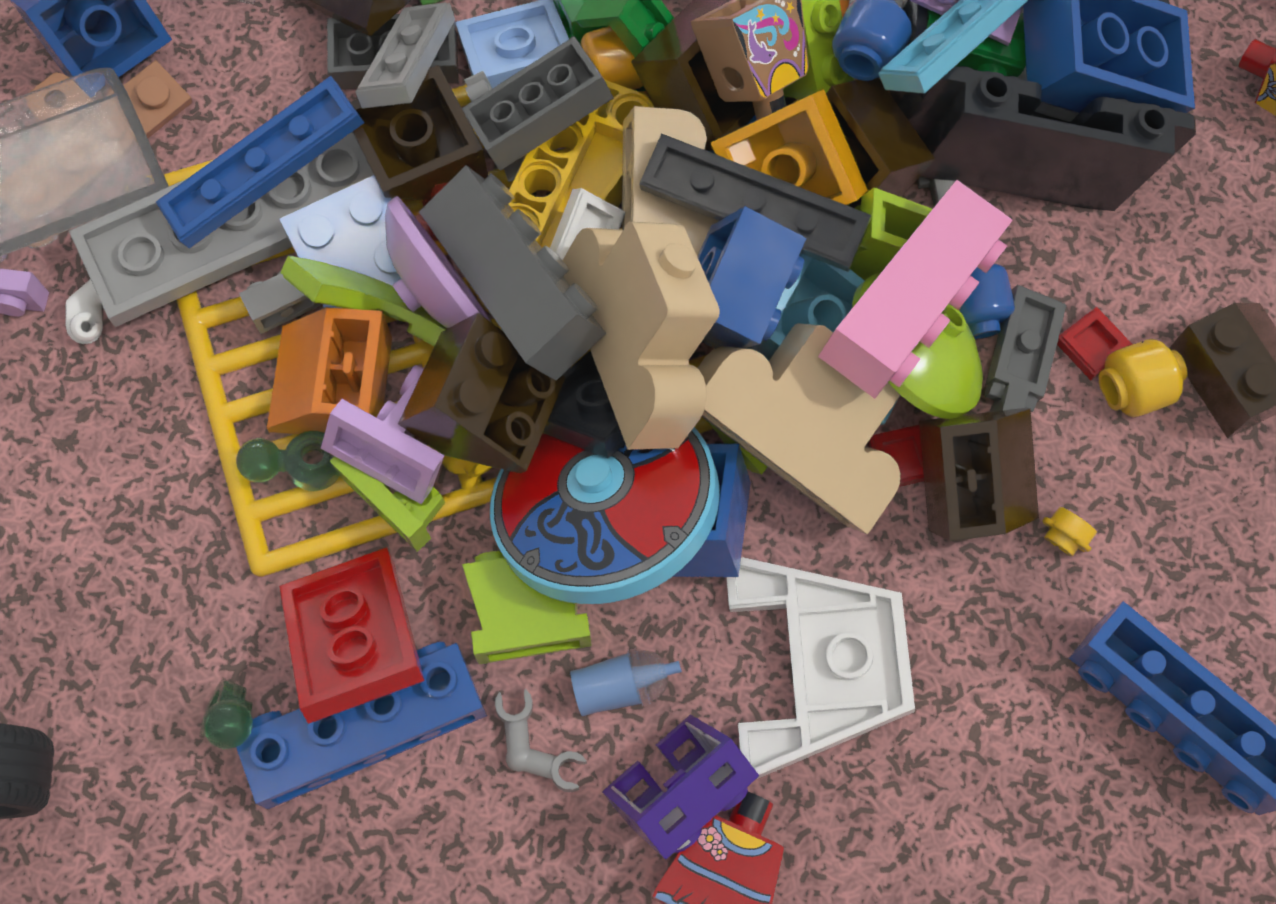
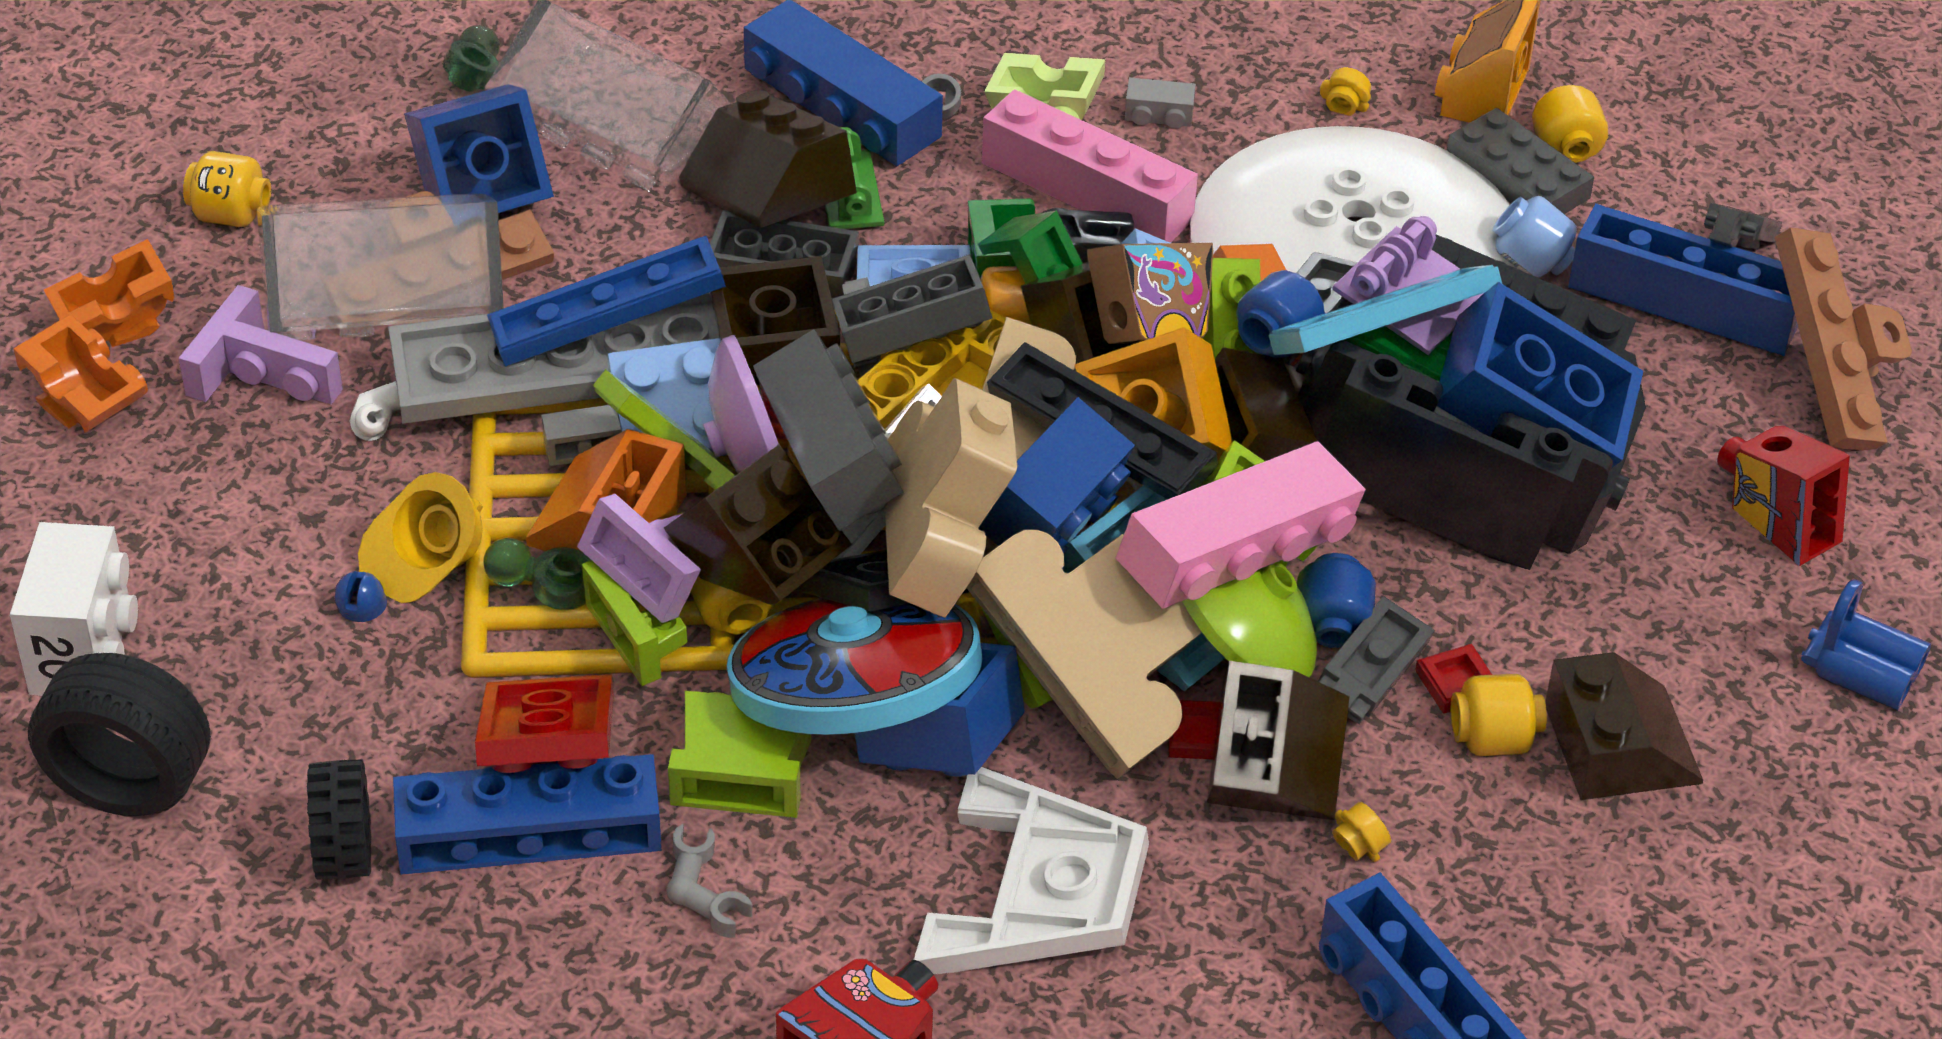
camera: 15 degrees right, 25 degrees down
(146, 519) = (370, 597): none -> blue hinge
(173, 453) = (421, 536): none -> yellow piece
(197, 794) = (339, 819): none -> black tyre
(227, 716) = (392, 758): clear green plate -> none
(406, 55) = (791, 241): light grey tile -> none
(621, 681) = (816, 844): medium blue piece -> none
(705, 782) = (857, 925): dark purple piece -> none

